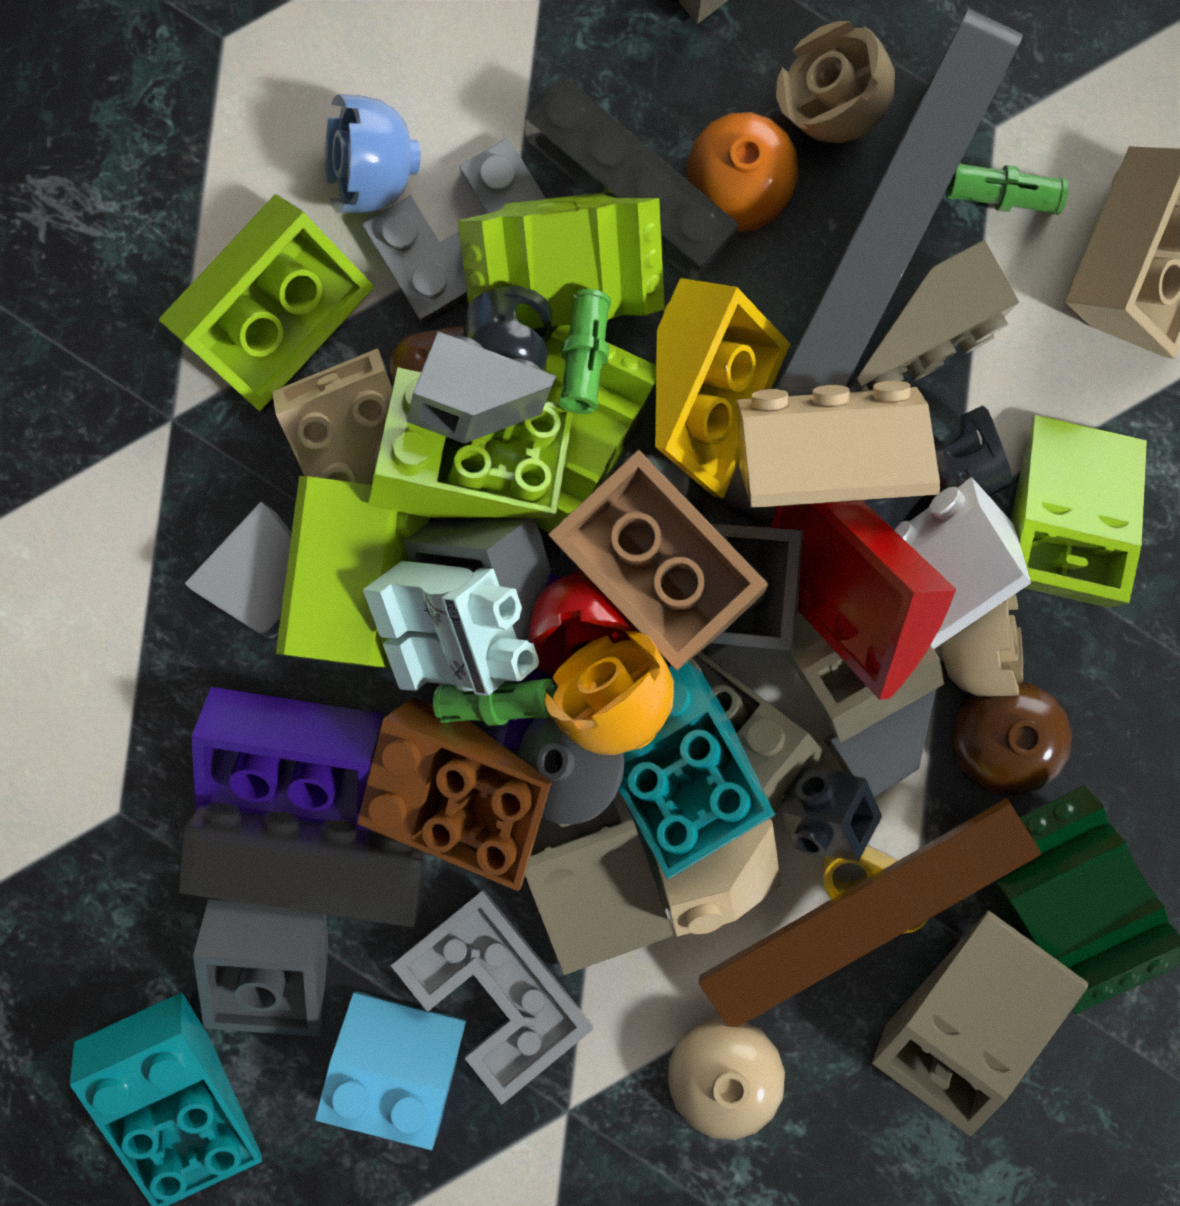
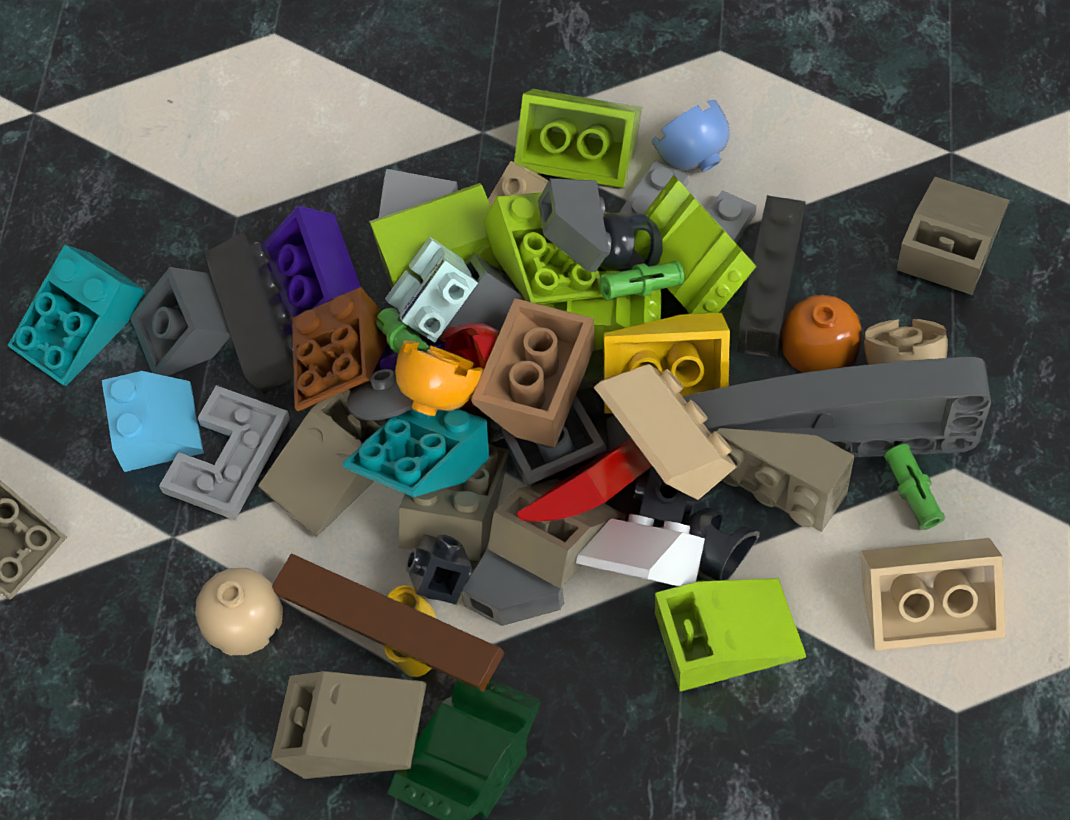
camera: 70 degrees right, 25 degrees down
(723, 883) = (365, 522): tan slope -> none
(986, 654) = (609, 614): tan cylinder -> none
(1012, 740) = (557, 669): reddish brown cylinder -> none

